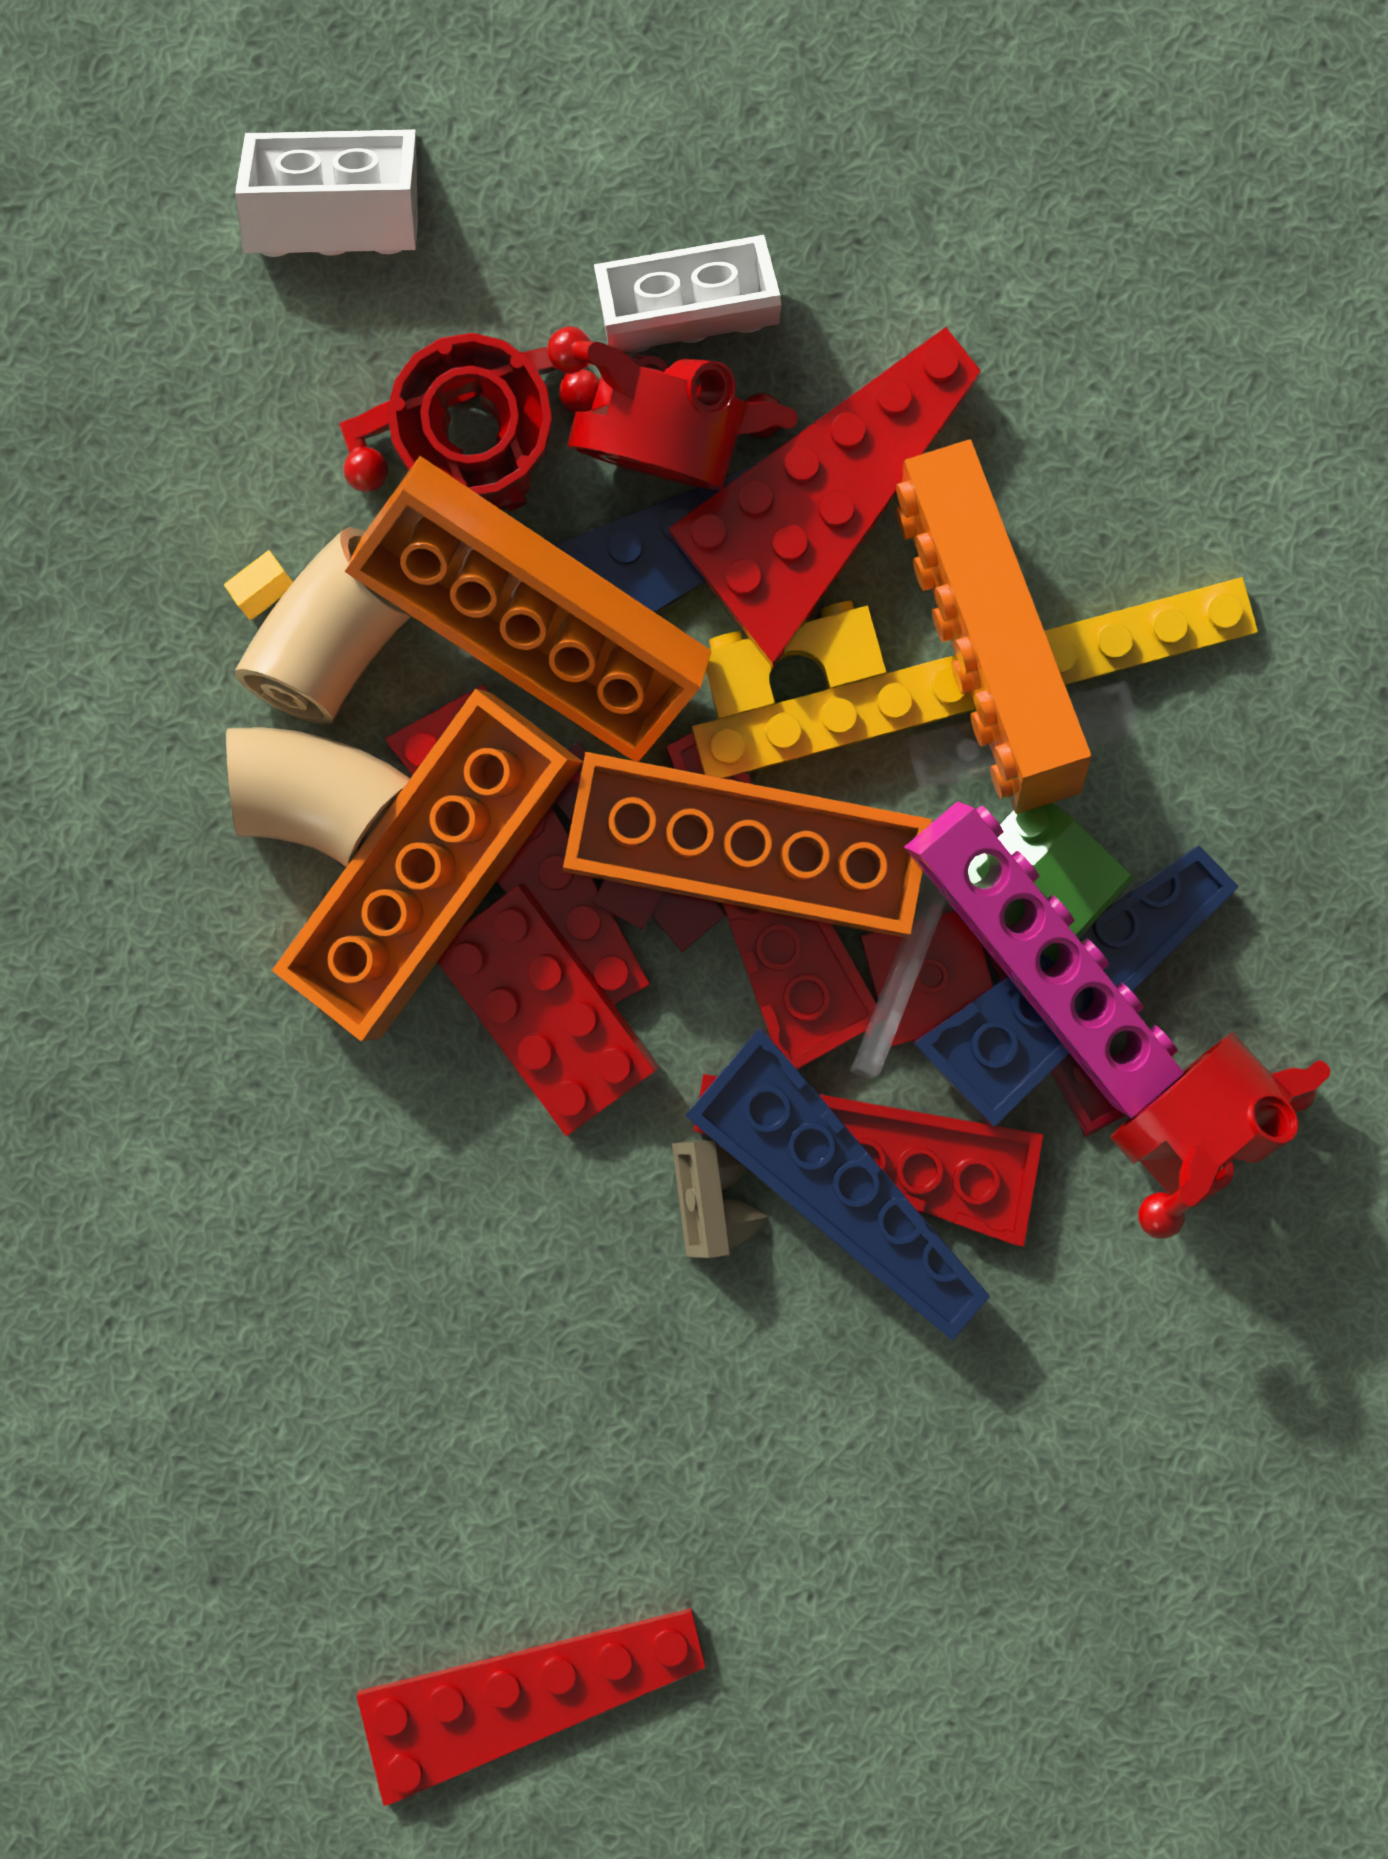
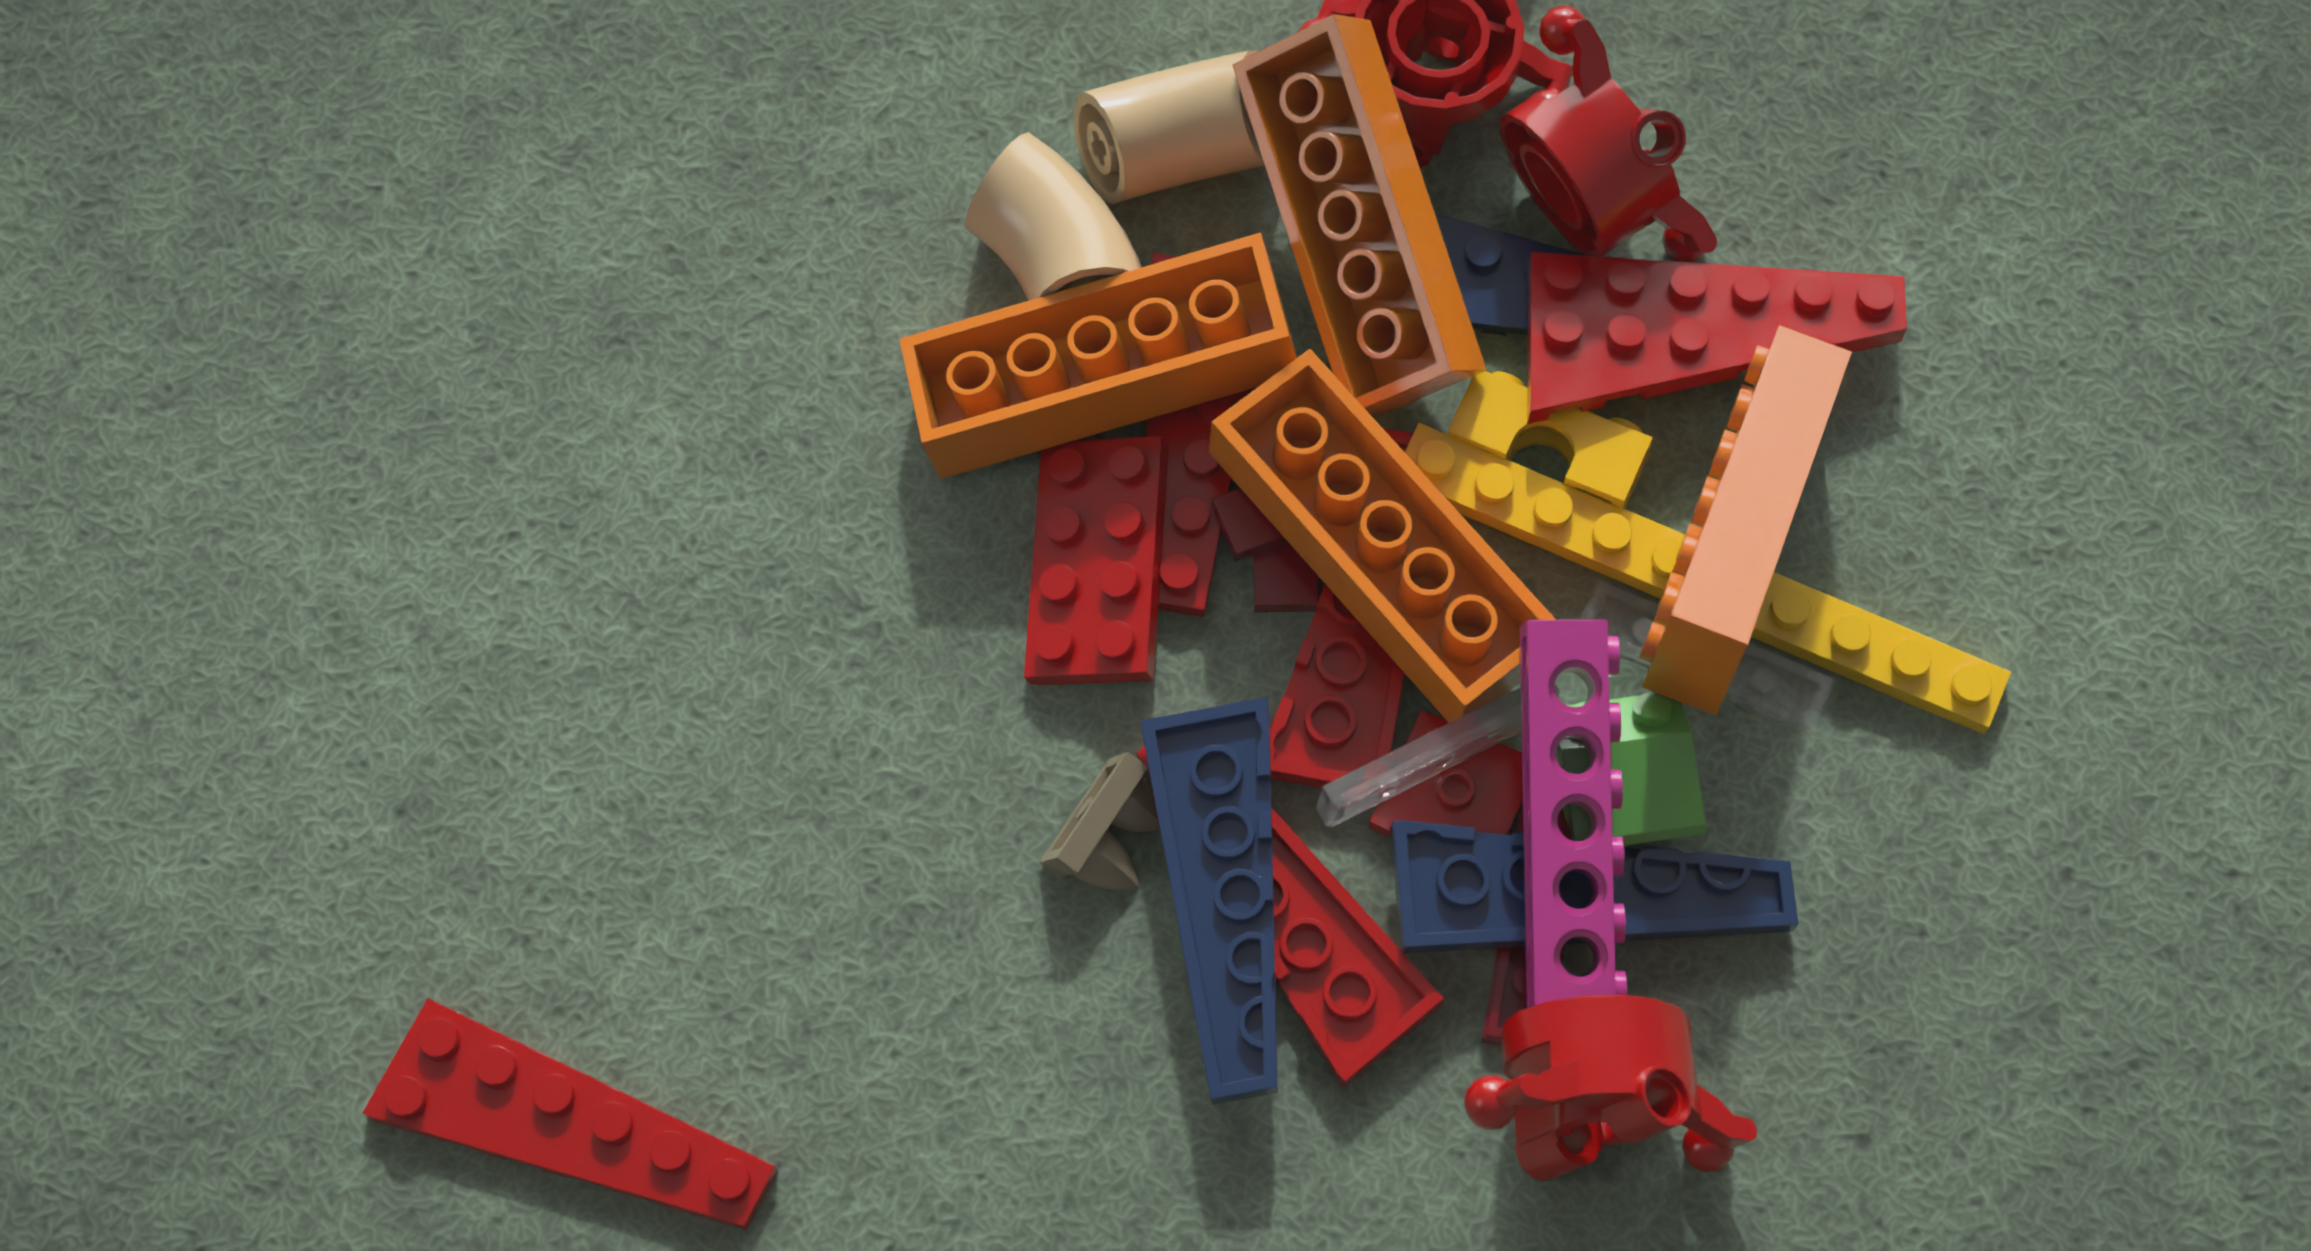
camera: 45 degrees right, 20 degrees down
(259, 585) = (1147, 61): yellow tile -> none
(688, 294) = (1715, 100): white slope -> none

